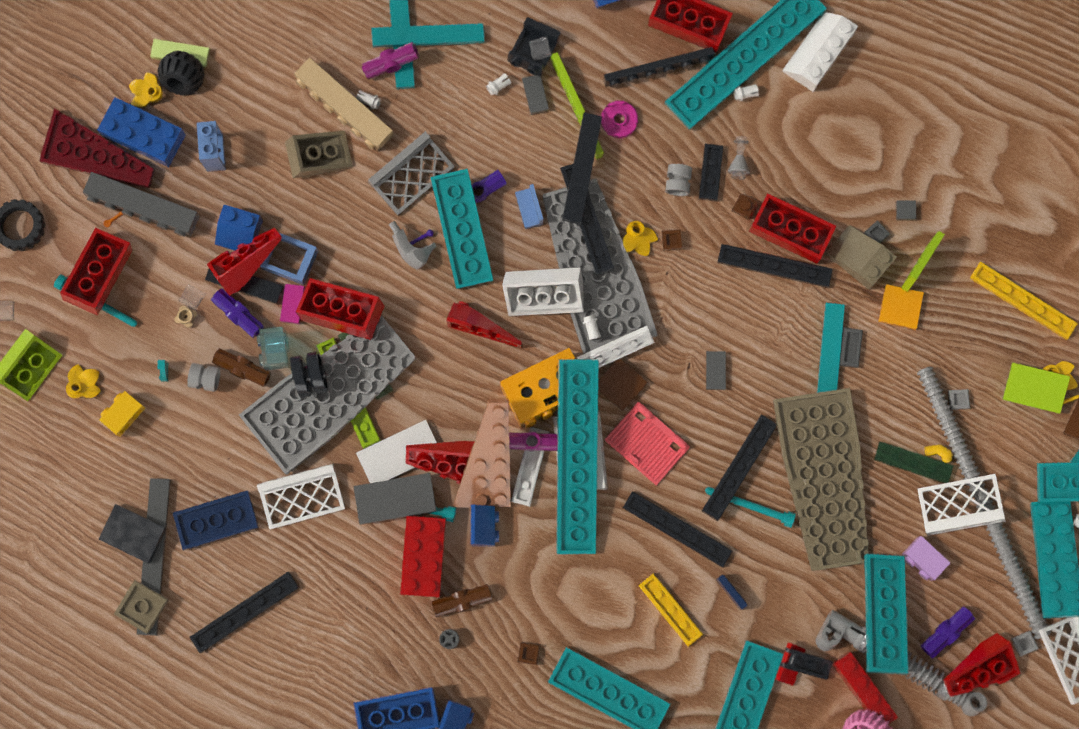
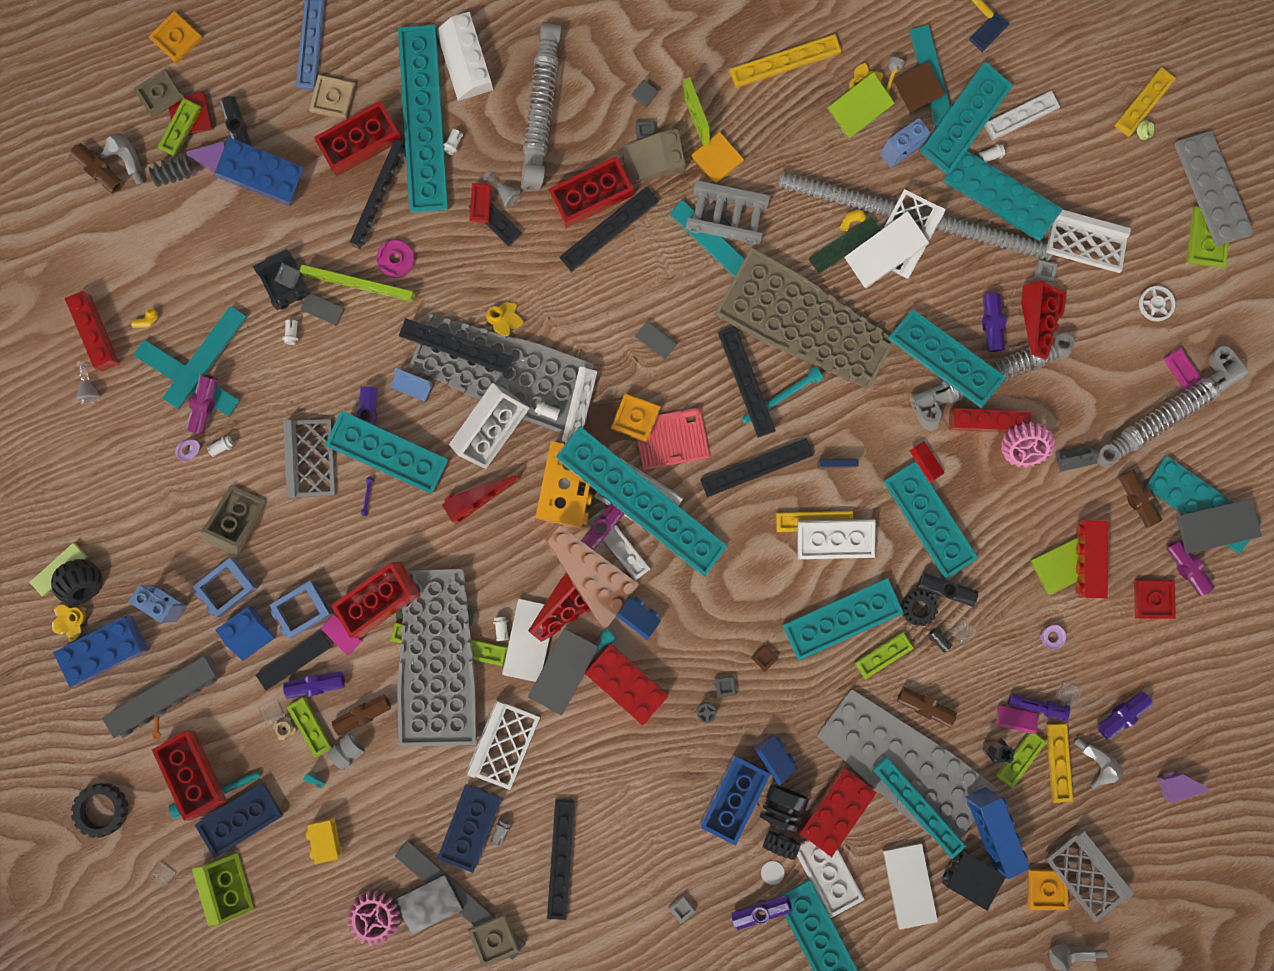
camera: 55 degrees left, 5 degrees up
(82, 150) = (77, 711): dark red wing -> none
(84, 380) = (273, 850): yellow plate -> none
(87, 490) = (366, 914): none -> bright pink gear
(89, 336) = (239, 820): none -> dark blue plate
(201, 335) = (309, 726): none -> lime tile
(229, 547) = (500, 833): none -> light grey pin
(237, 267) = (276, 657): red wedge -> none
(274, 348) = (366, 677): clear light blue brick -> none
(280, 192) = (240, 574): none -> medium blue window
(309, 374) = (410, 666): black wheel -> none
(343, 104) = (208, 469): tan brick -> none
(346, 82) = (191, 453): none -> lavender piece
(392, 424) = (501, 628): none -> white pin
(412, 256) = (379, 508): light grey animal -> none
(461, 600) = (684, 679): reddish brown piece -> none
(481, 639) = (725, 686): none -> dark grey tile
(582, 168) = (413, 318): black tile -> none
(641, 401) = (635, 417): none -> light orange tile
(669, 637) = (836, 539): none -> white tile
(671, 240) = (525, 293): reddish brown plate -> none
(678, 179) = (479, 248): light grey wheel -> none
(715, 150) = (480, 202): none -> red tile
(744, 206) = (543, 215): reddish brown plate -> none
(792, 158) = (535, 146): none -> light grey piece
(808, 664) = (937, 448): black hinge -> none
(881, 347) = (729, 195): none -> light grey fence
(925, 559) = (926, 294): lavender brick -> none
(935, 498) = (887, 250): none -> white tile
(959, 399) = (823, 171): light grey tile -> none
(1040, 447) = (907, 140): none -> medium blue window

